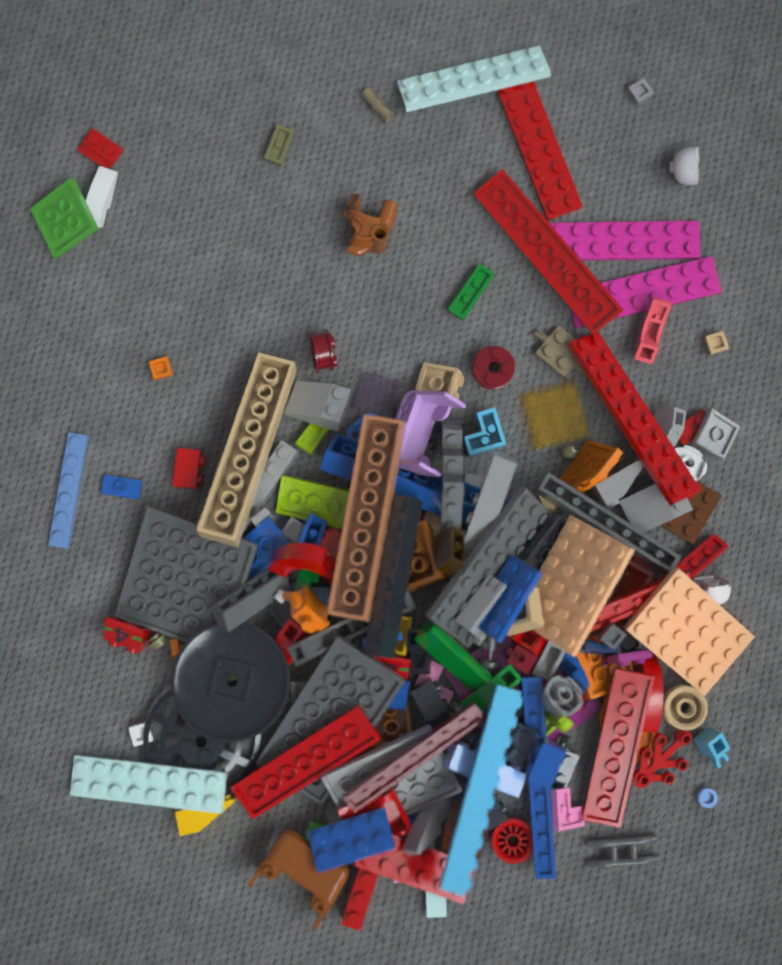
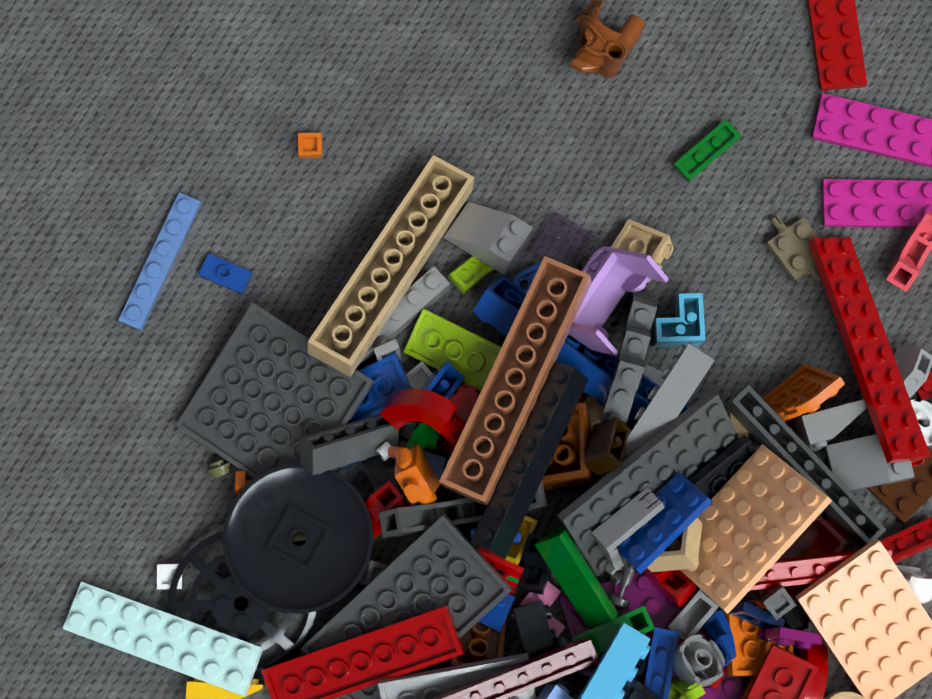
camera: 10 degrees right, 5 degrees down
(125, 633) = (185, 450): red slope -> none
(188, 469) = (311, 272): red brick -> none
(322, 351) = (510, 173): dark red wheel -> none
(493, 355) = (715, 232): dark red wheel -> none
(520, 658) = (658, 603): dark red brick -> none
(548, 252) = (812, 127): red plate -> none
(555, 416) = (773, 324): clear yellow plate -> none
(569, 452) = (779, 372): olive plate -> none

